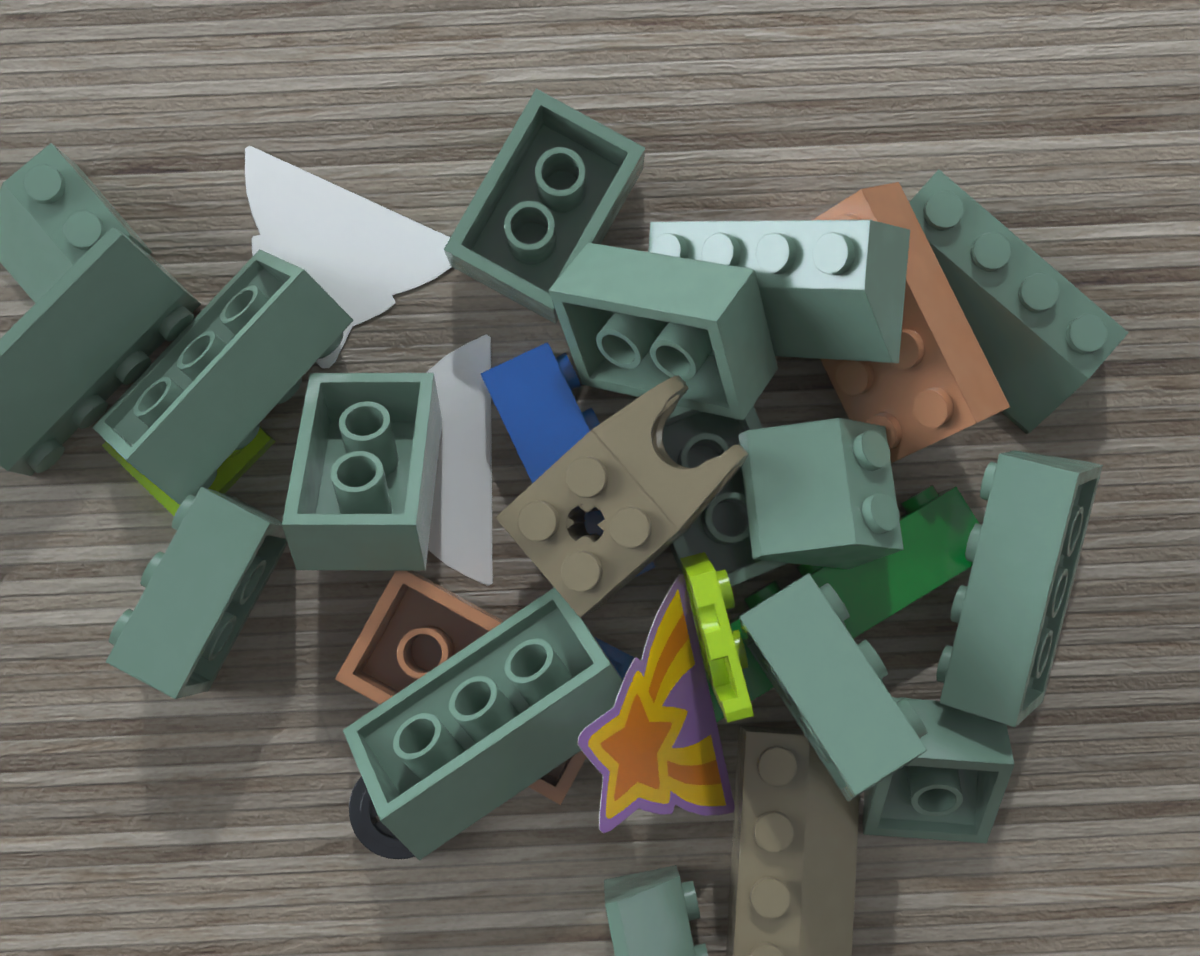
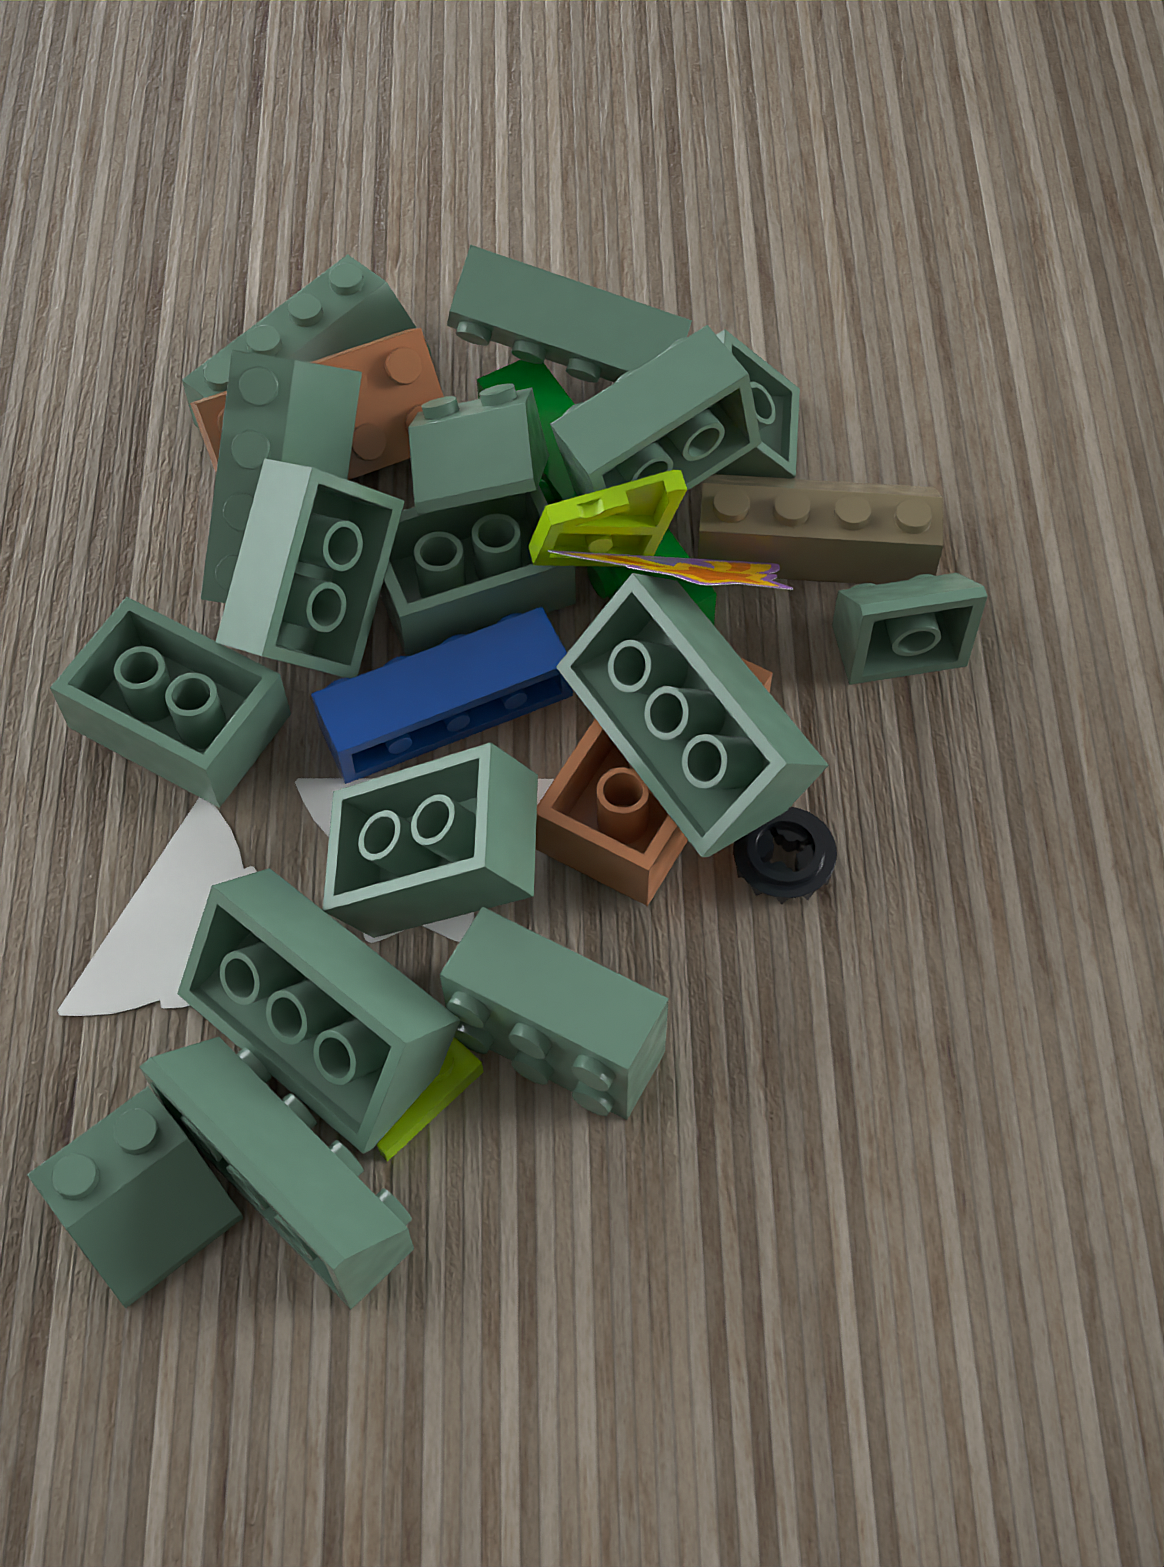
camera: 85 degrees left, 25 degrees down
(634, 485) = (472, 582): dark tan brick -> none

